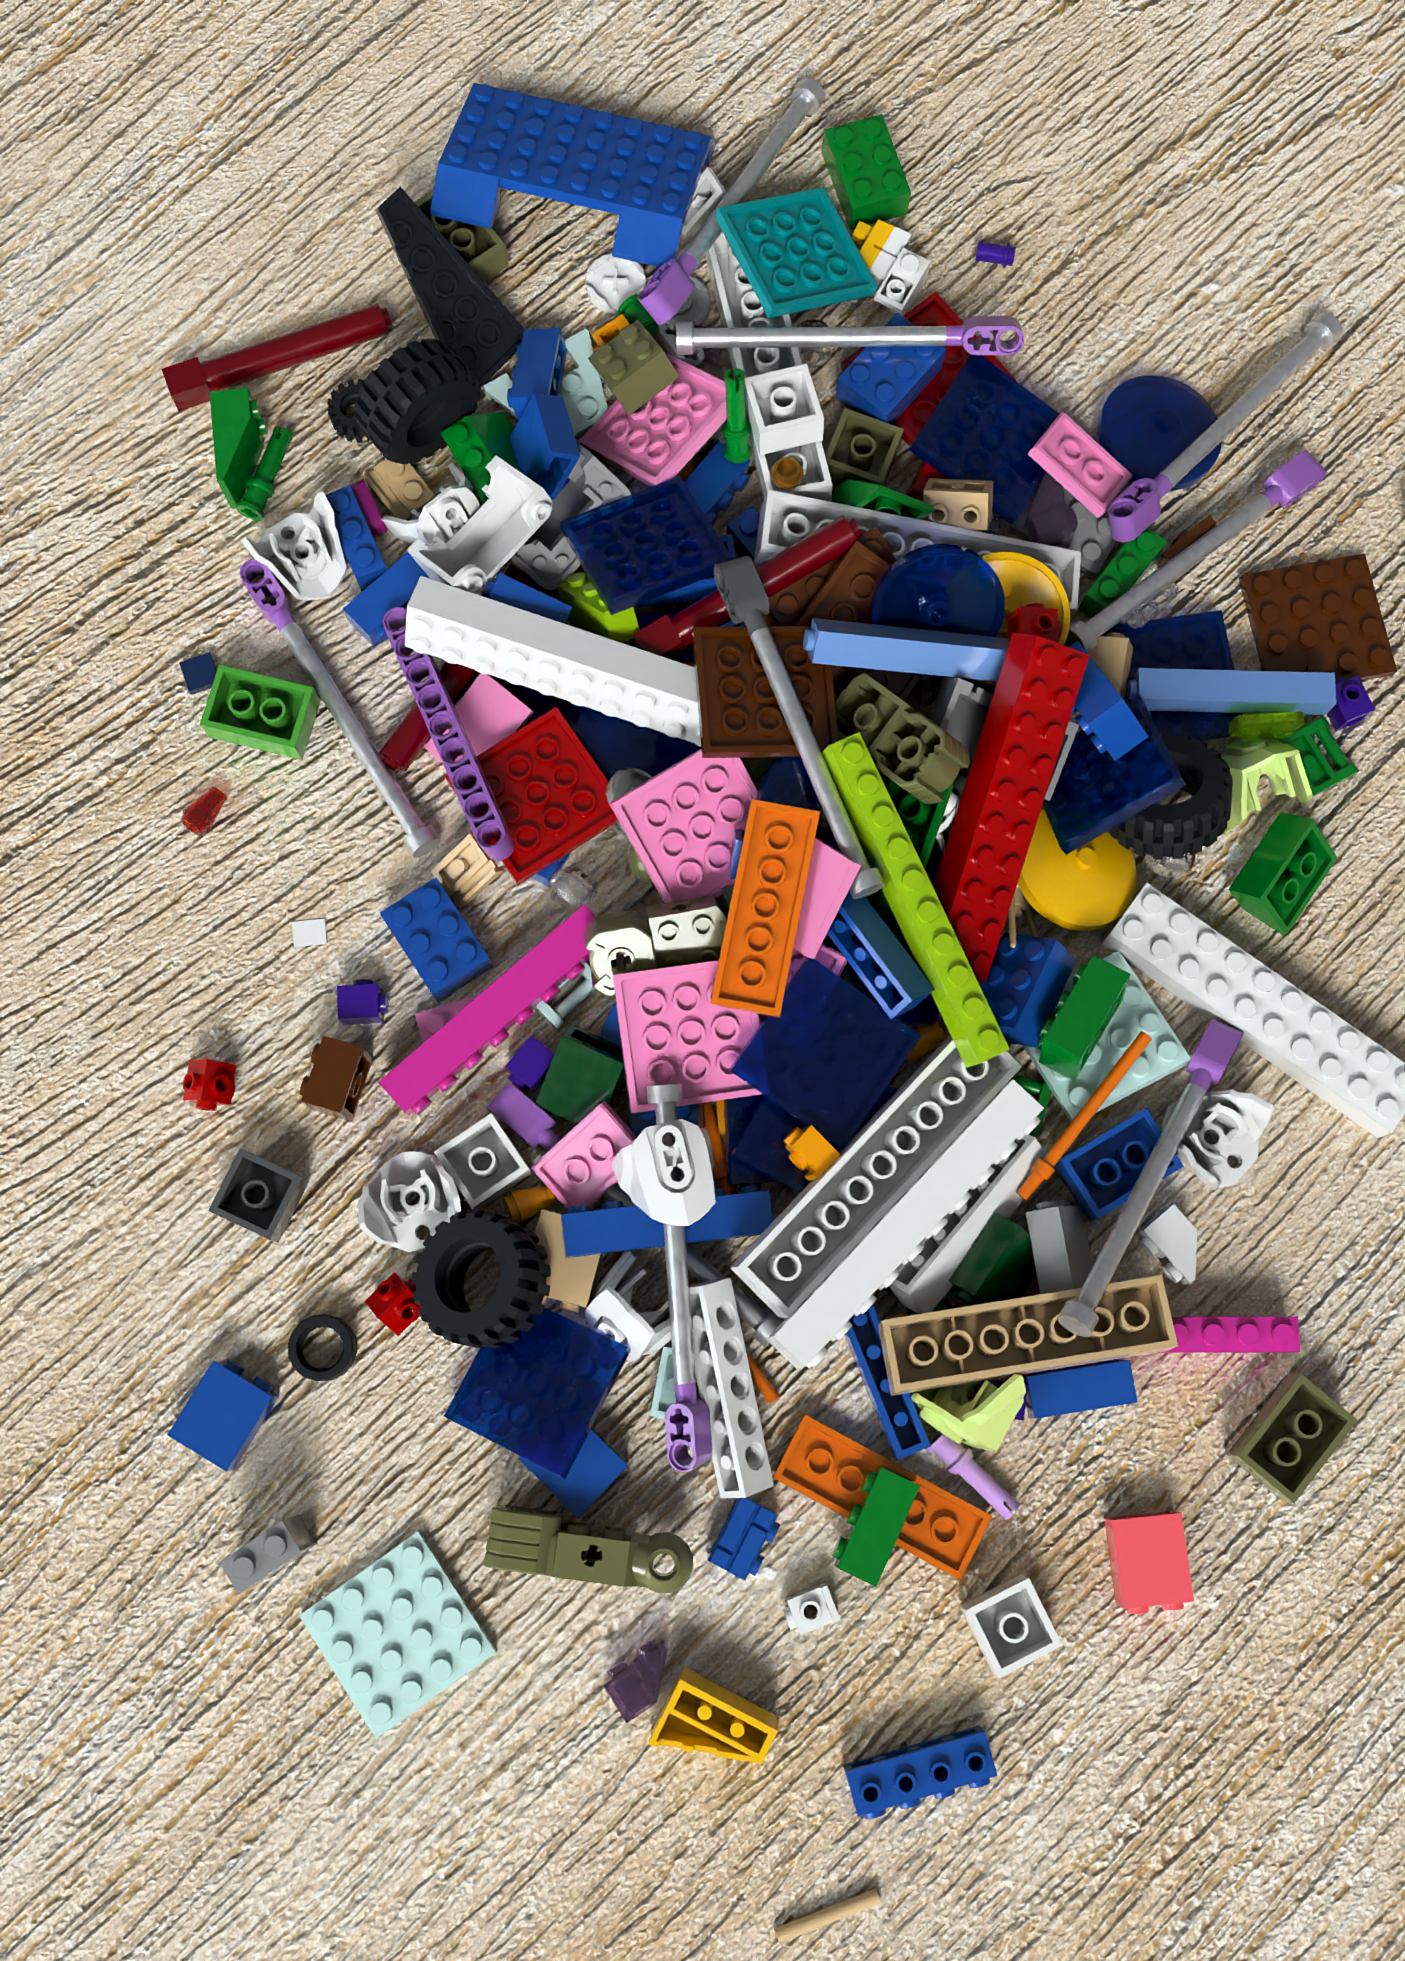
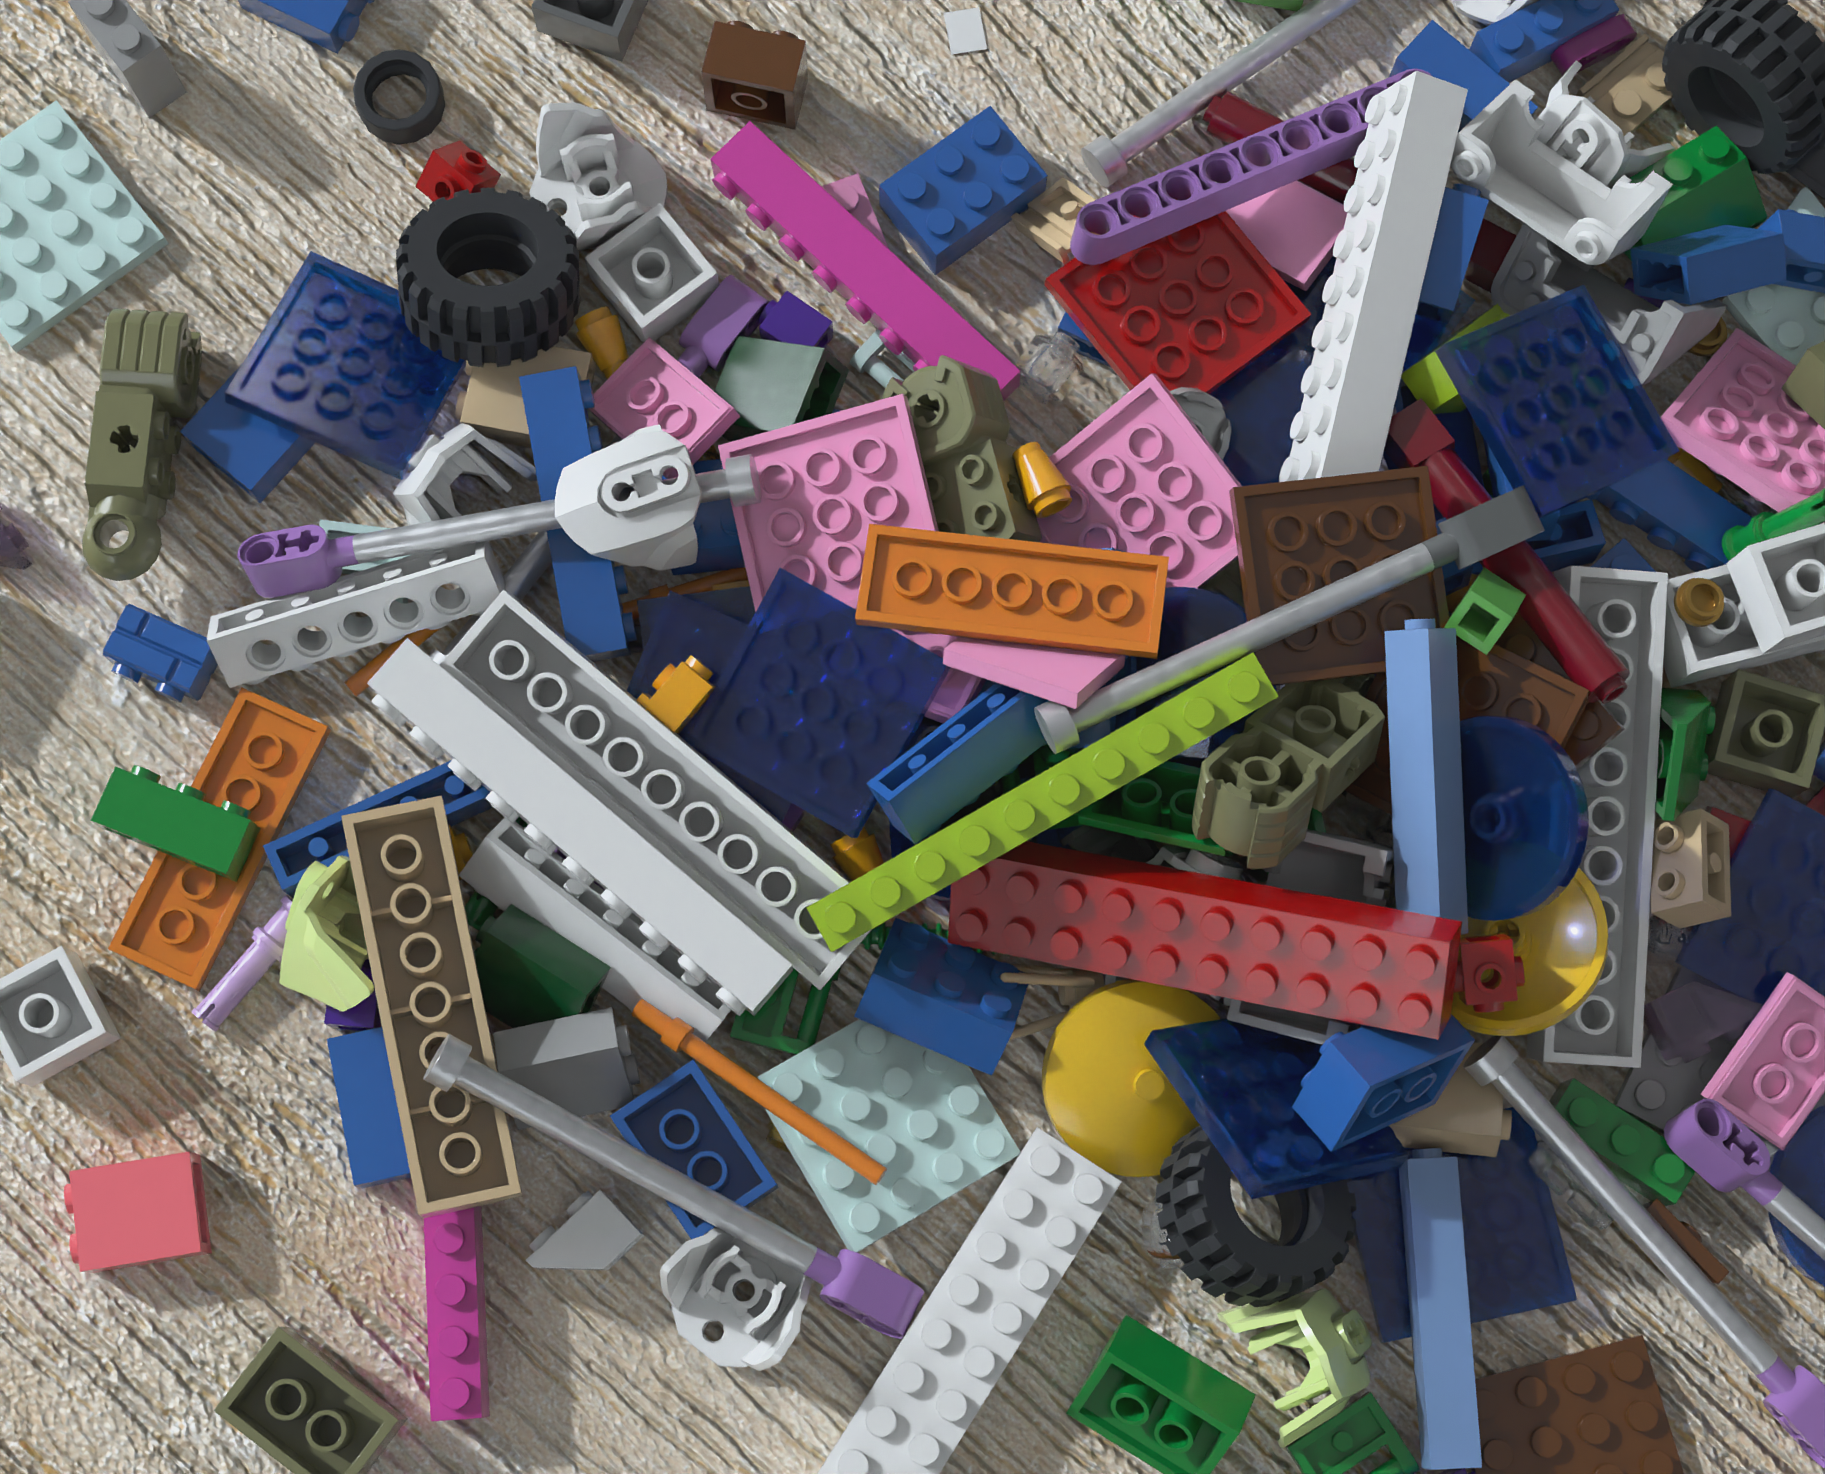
camera: 85 degrees right, 0 degrees up
(361, 1003) = (867, 101): dark purple brick -> none
(675, 889) = (1041, 481): none -> light orange cone
(796, 601) = (1485, 611): none -> bright green brick
(821, 1599) = (80, 761): white brick -> none
(1082, 1017) = (901, 1079): green brick -> none
(1266, 725) = (1388, 1380): clear neon green wing -> none

